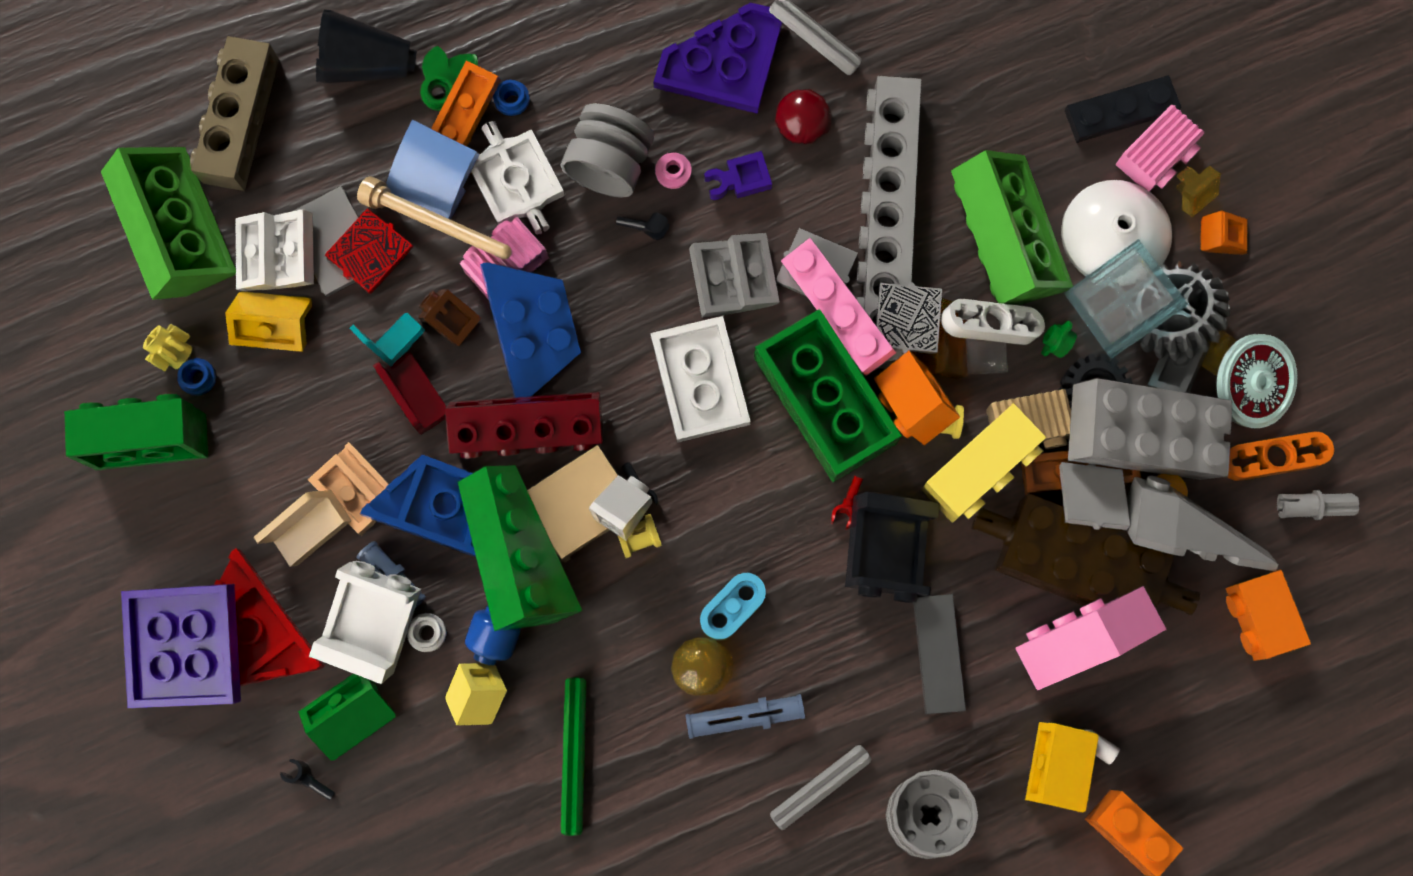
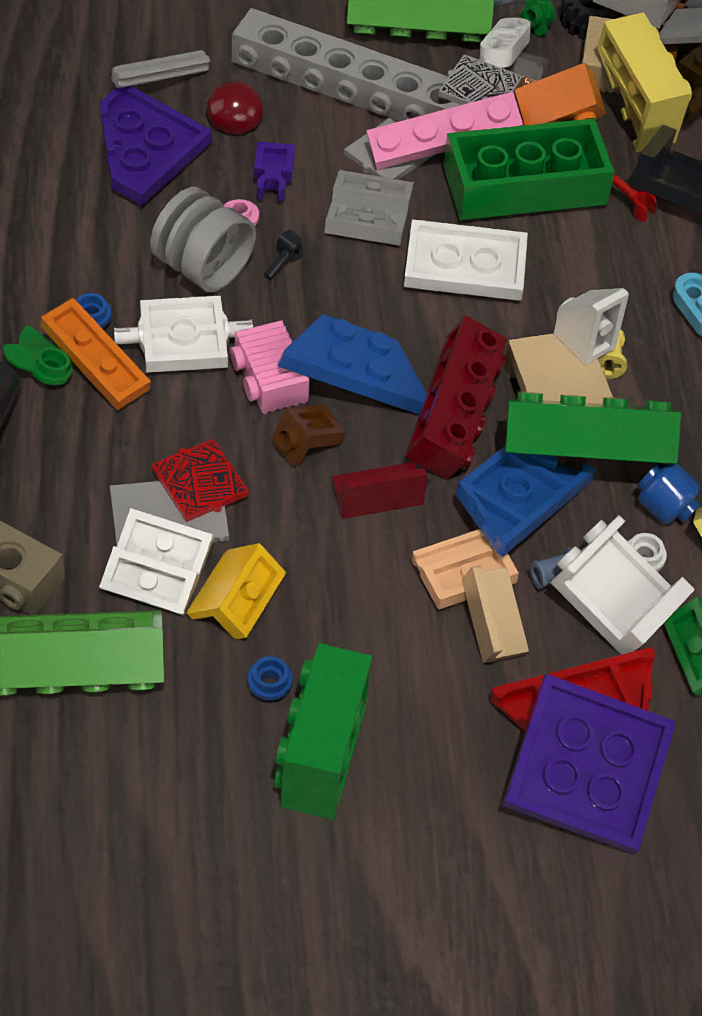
camera: 75 degrees left, 25 degrees down
(167, 347) = (227, 686): light yellow gear -> none
(376, 195) = (141, 450): tan piece -> none
(395, 340) = (312, 482): teal bracket -> none
(431, 170) = (140, 395): medium blue slope -> none

